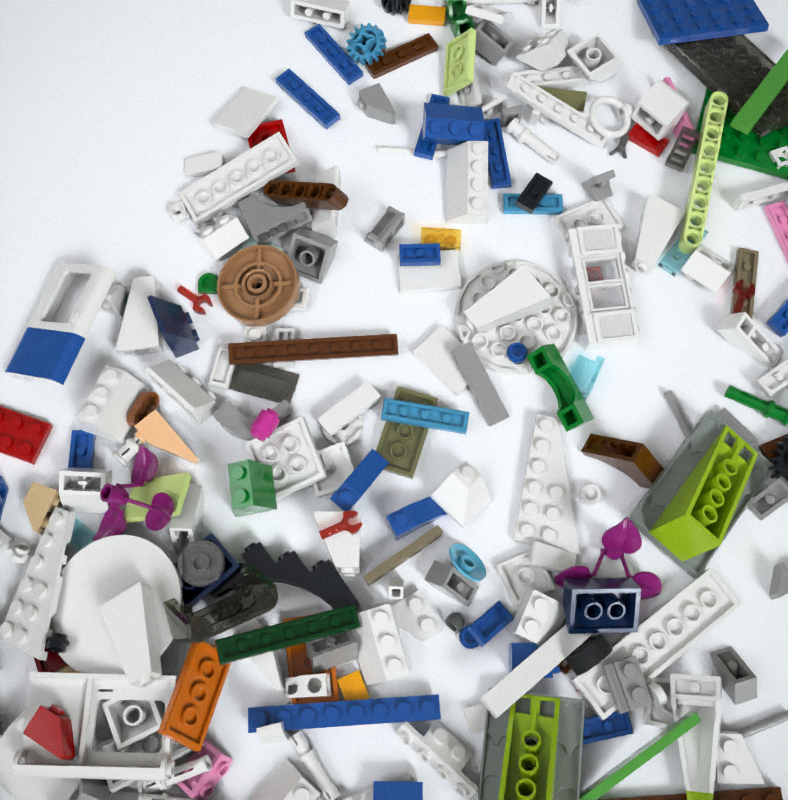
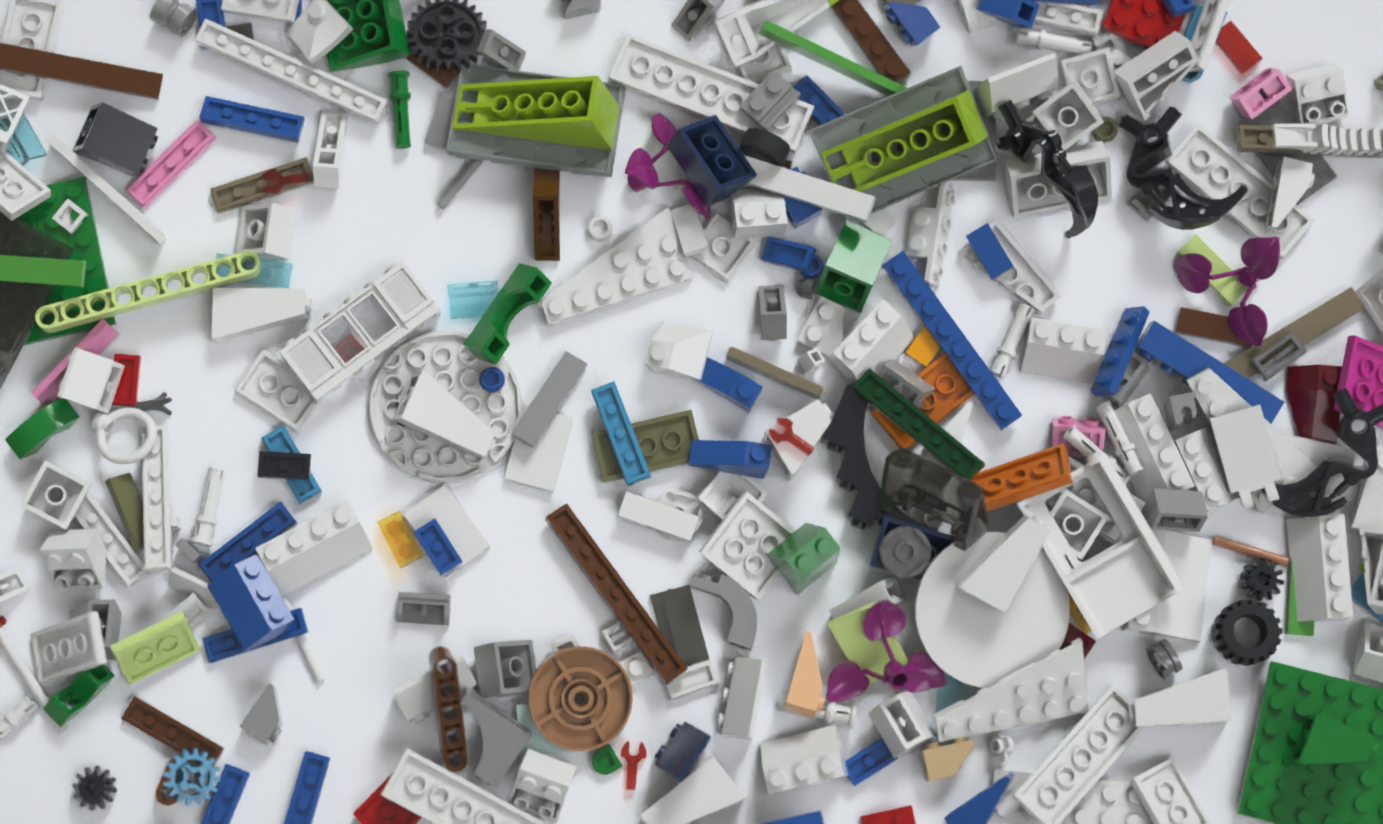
camera: 125 degrees left, 10 degrees up
(52, 731) = (1130, 578): red slope -> none
(57, 643) = (1057, 637): black plate -> none
(143, 406) = (787, 728): dark orange beam -> none
(264, 424) = (732, 583): dark pink brick -> none
(272, 733) = (1008, 391): white slope -> none
(308, 686) = (950, 386): white leg -> none
(426, 15) = (93, 738): light orange tile -> none
(452, 671) = (853, 266): none -> slope
(467, 562) = (744, 307): medium azure dish -> none
(599, 185) = (229, 401): light grey slope -> none
(643, 70) = (40, 427): none -> green brick
(657, 694) = (761, 70): white tile -> none
(675, 165) = (145, 323): clear smoke slope -> none

